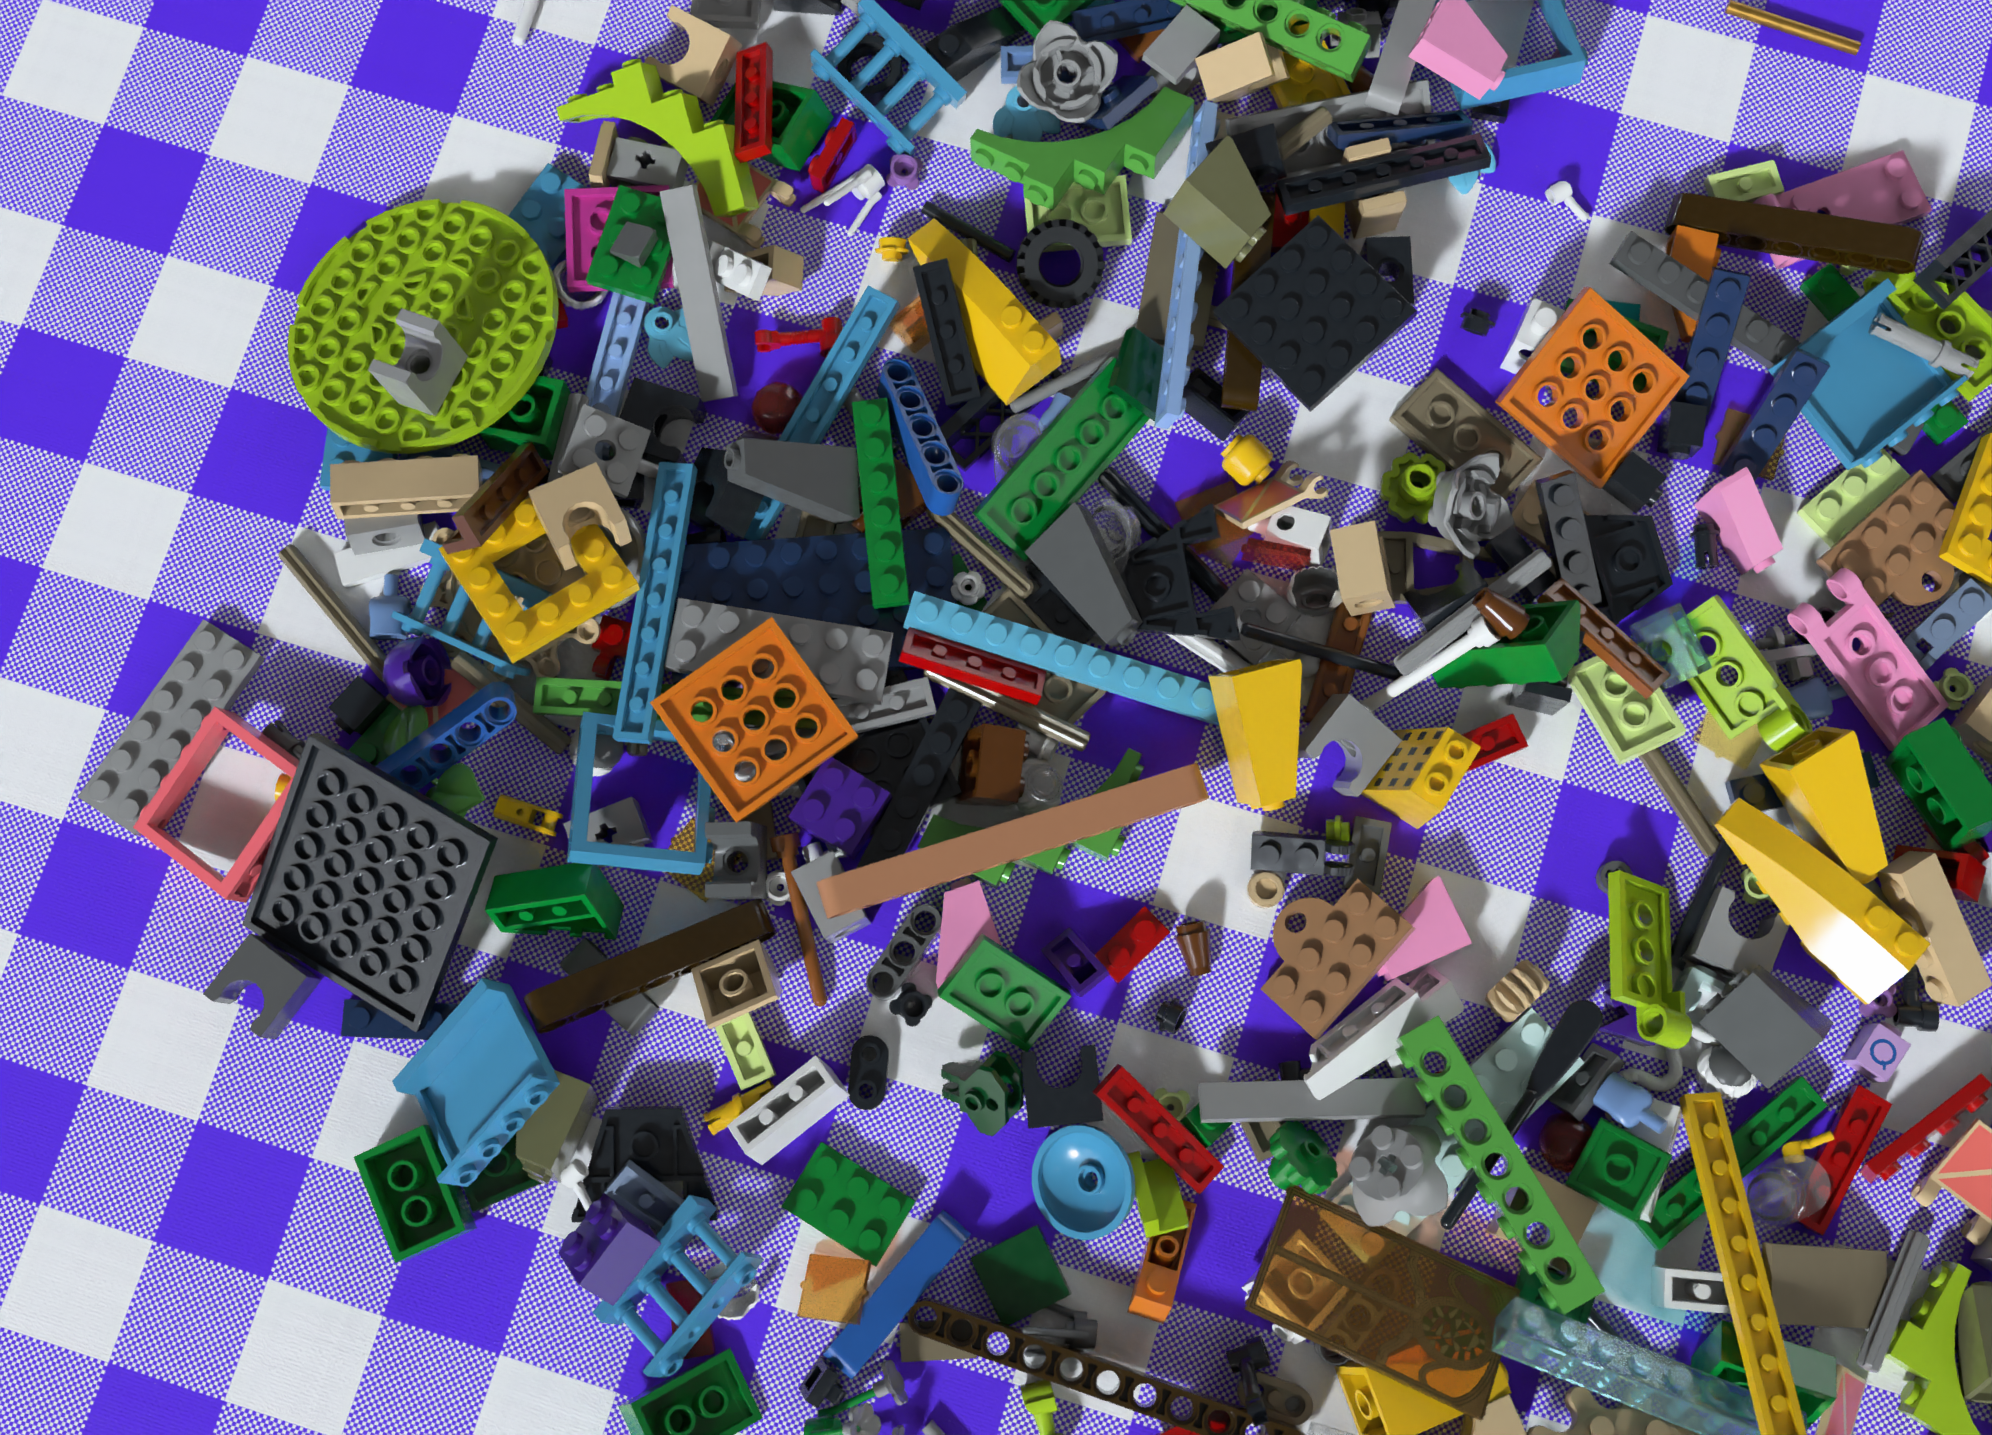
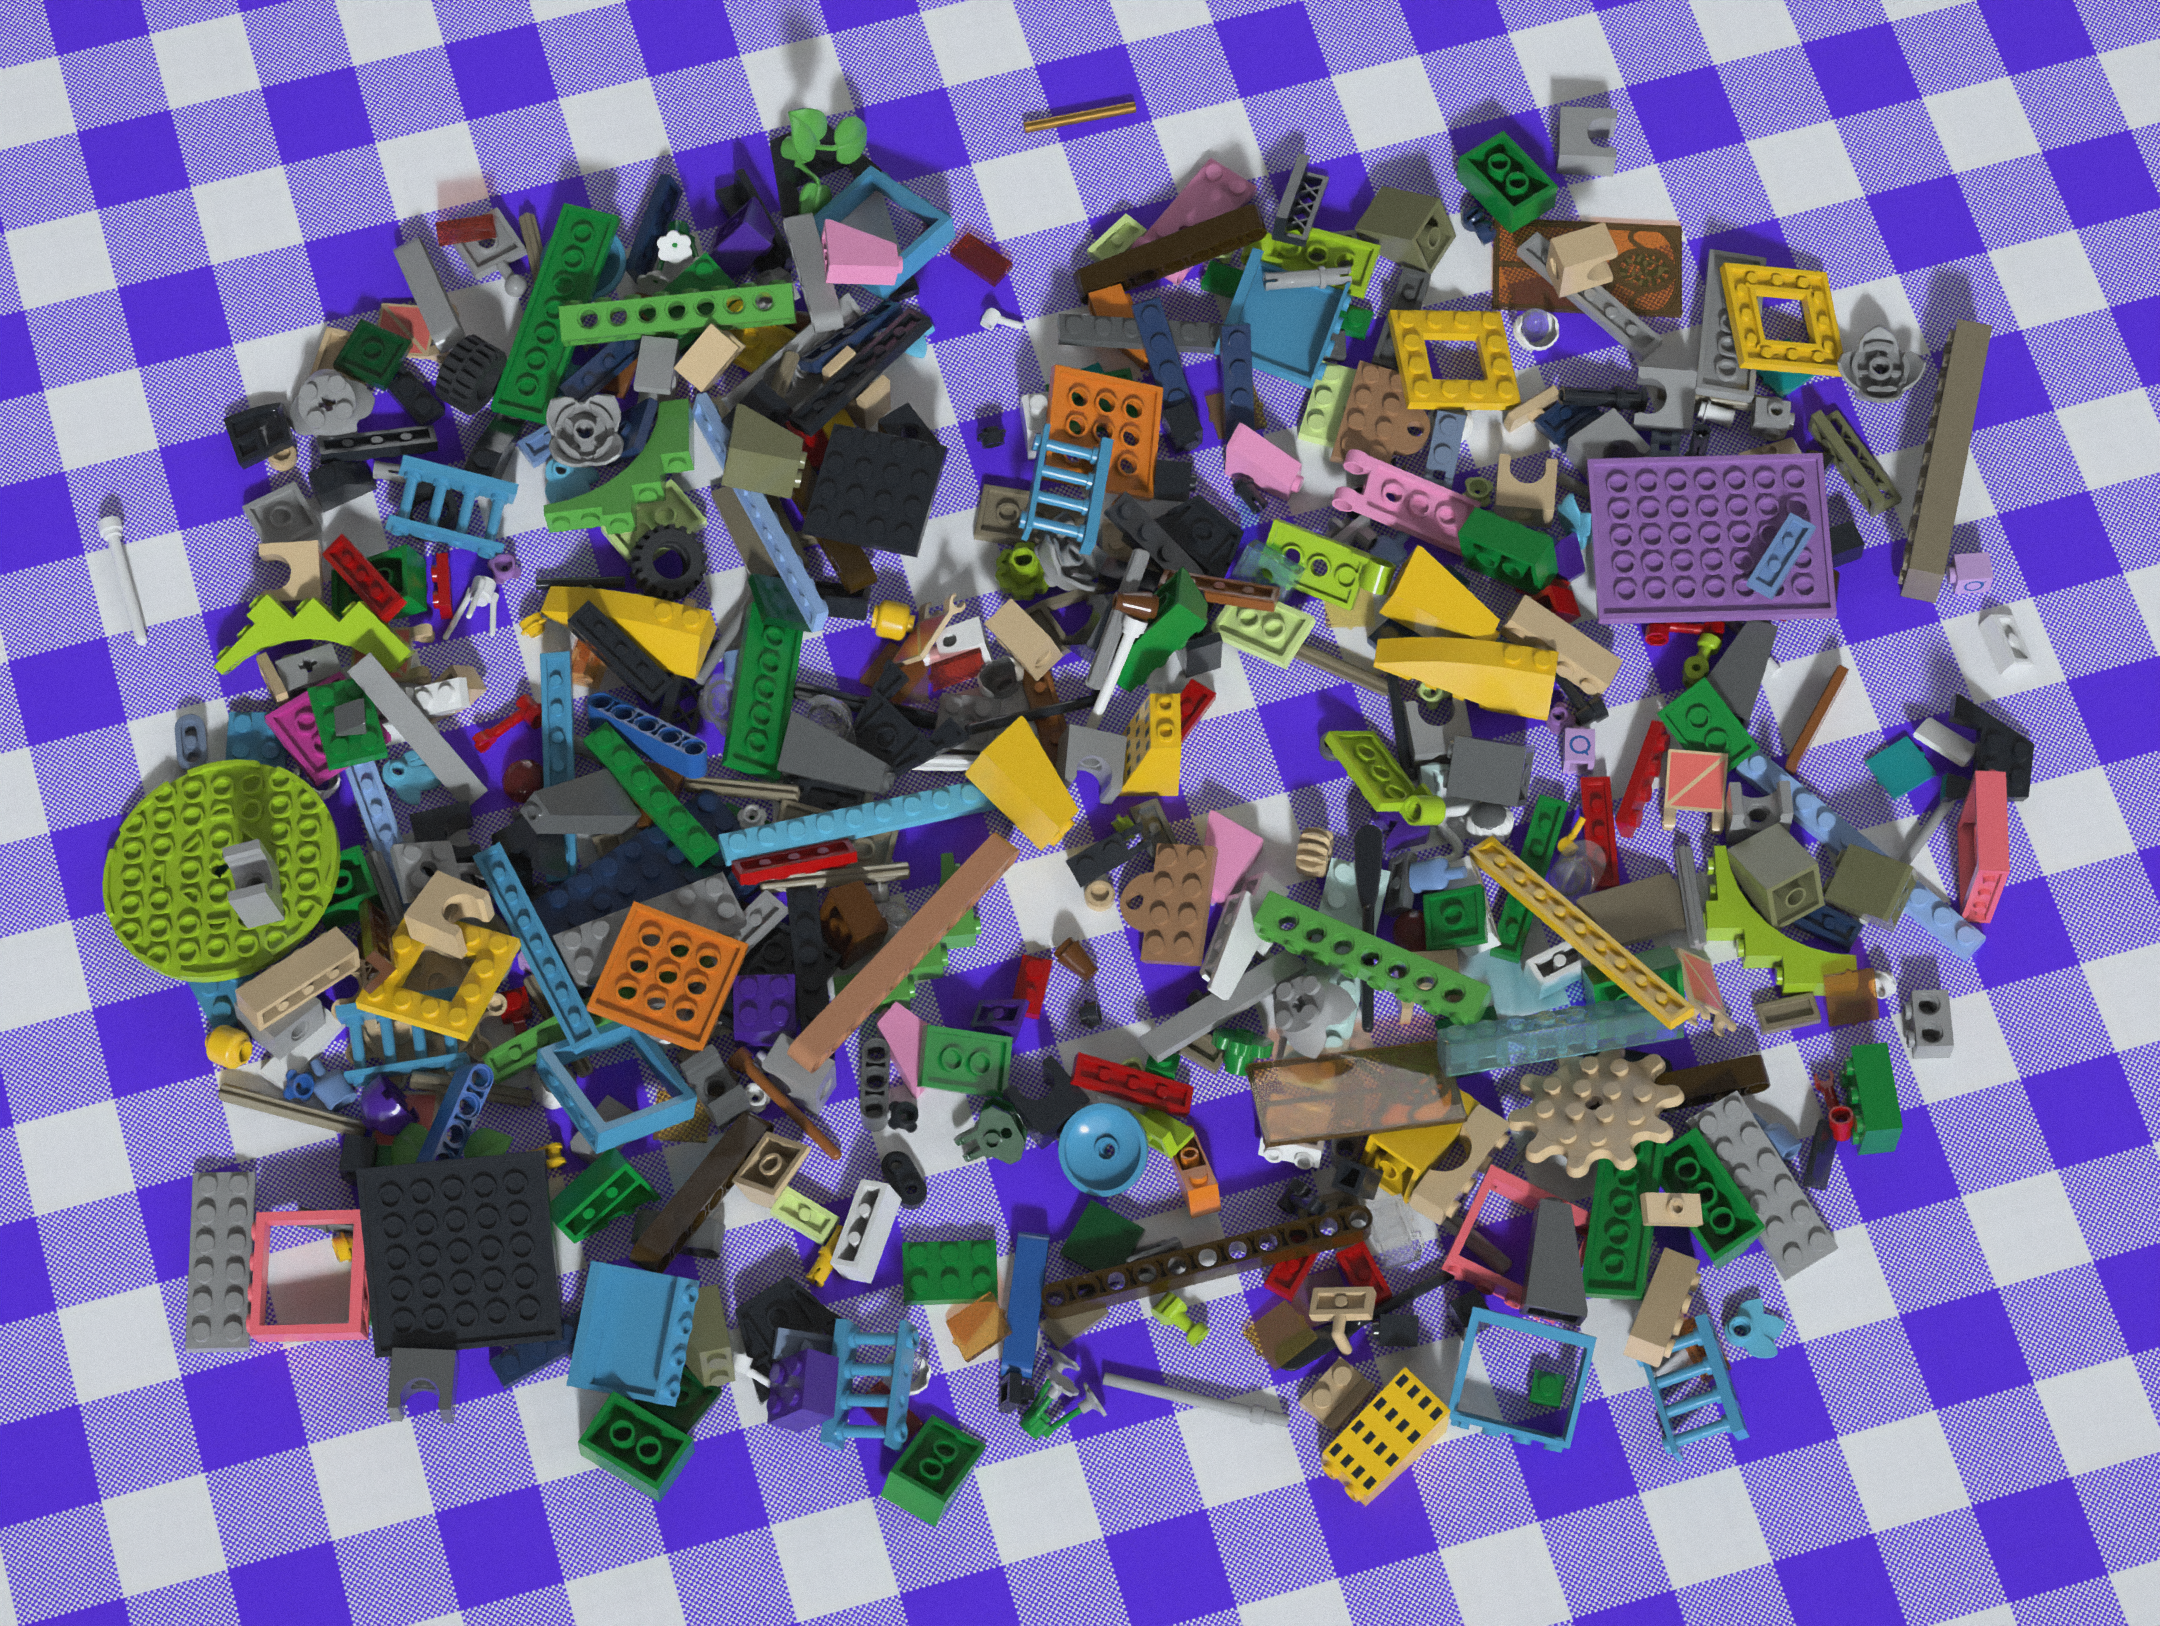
camera: 40 degrees left, 15 degrees down
(315, 511) = (228, 1046): none -> yellow head
(357, 601) = (306, 1085): none -> blue plate
(489, 175) = (192, 745): none -> sand blue plate
(1324, 1392) = (1357, 1178): none -> black brick
(1548, 440) = (1088, 507): none -> dark azure fence
(1590, 123) = (981, 259): none -> clear red tile

